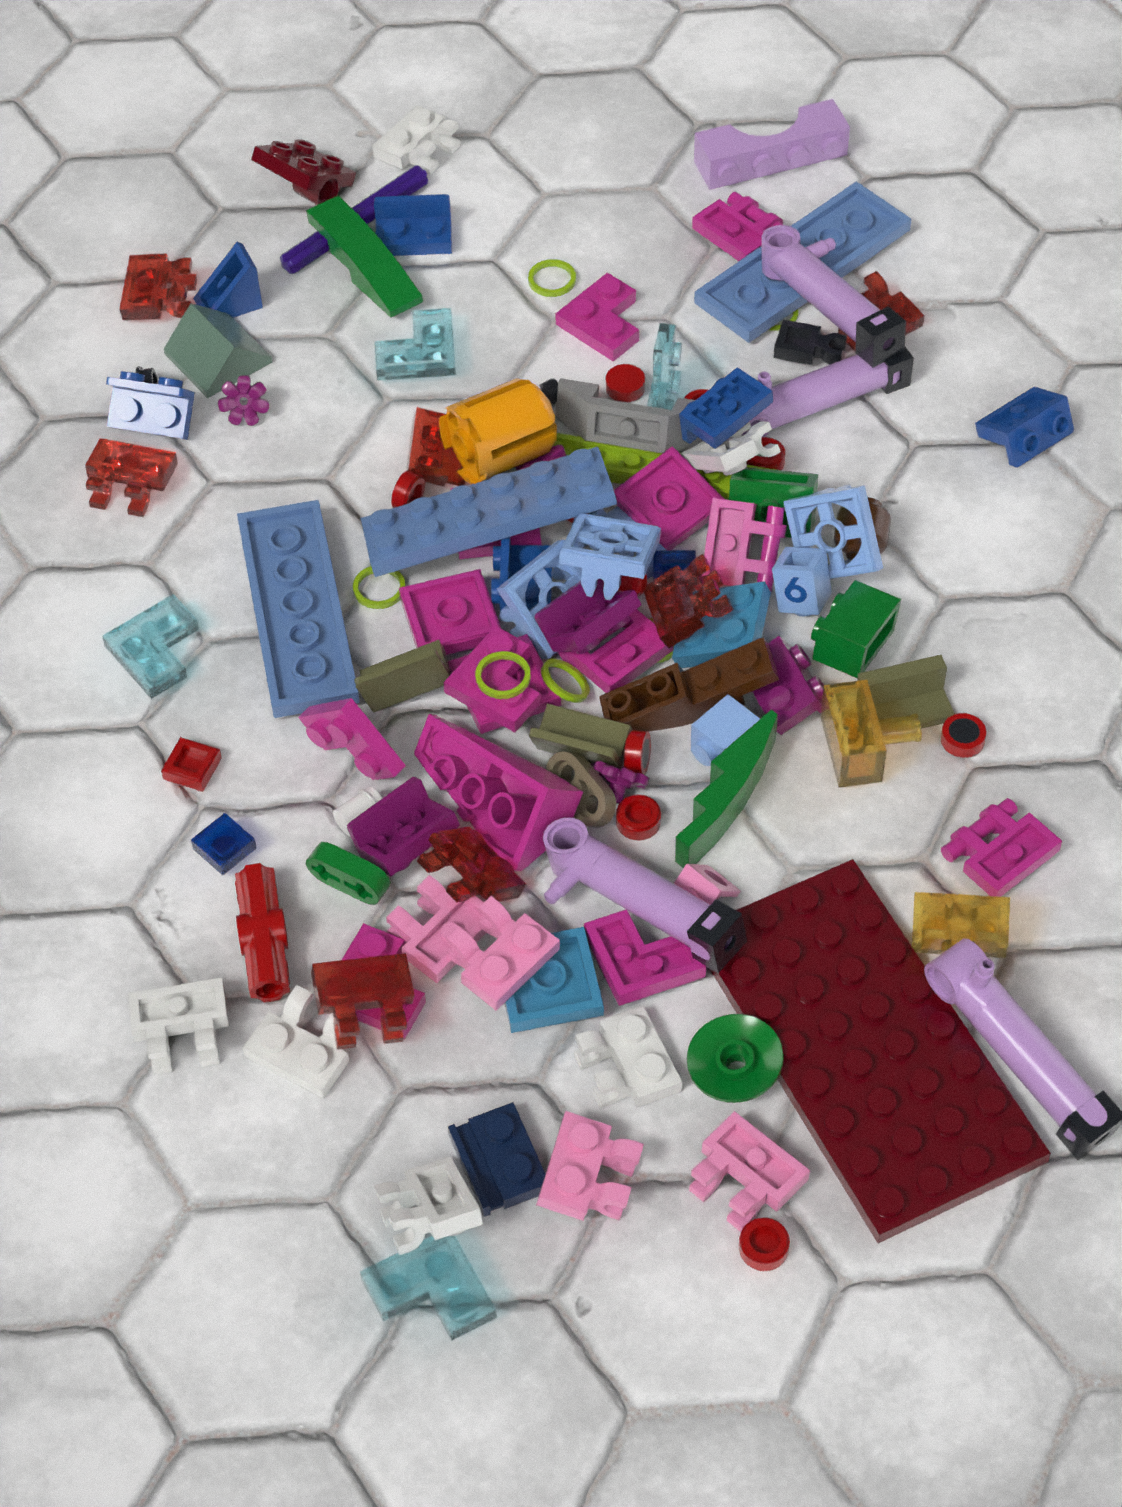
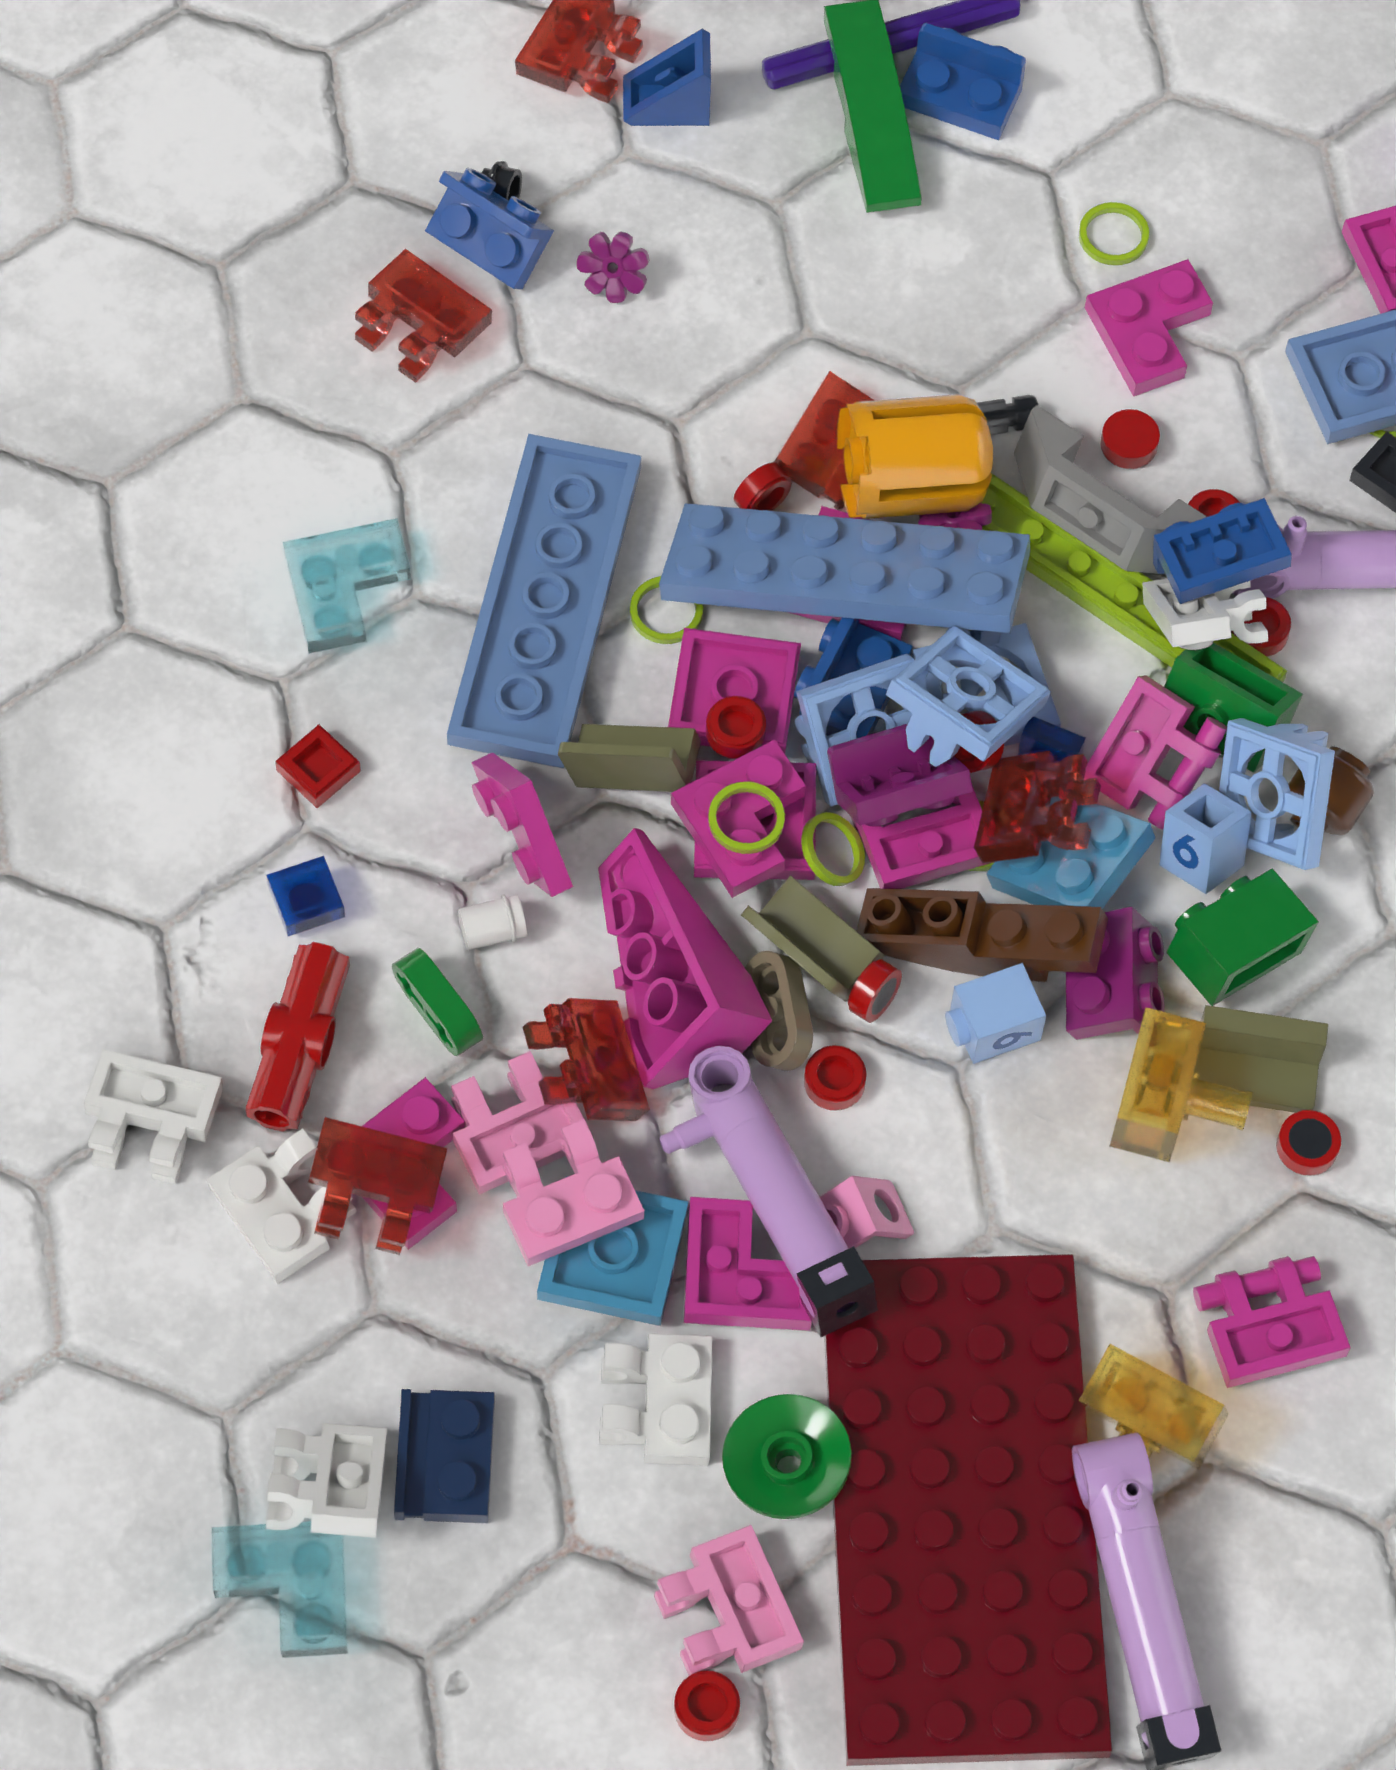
camera: 20 degrees right, 10 degrees up
(213, 349) = (614, 169): sand green slope -> none
(399, 827) = (528, 967): magenta bracket -> none
(423, 356) = (884, 290): clear light blue plate -> none
(464, 630) = (735, 726): none -> red tile
(575, 1164) = (526, 1508): bright pink plate -> none
(621, 779) = (832, 1018): magenta plant -> none
(665, 377) = (1179, 455): clear light blue plate -> none
(668, 496) = (1094, 641): dark pink plate -> none
(732, 782) = (977, 1081): green slope -> none

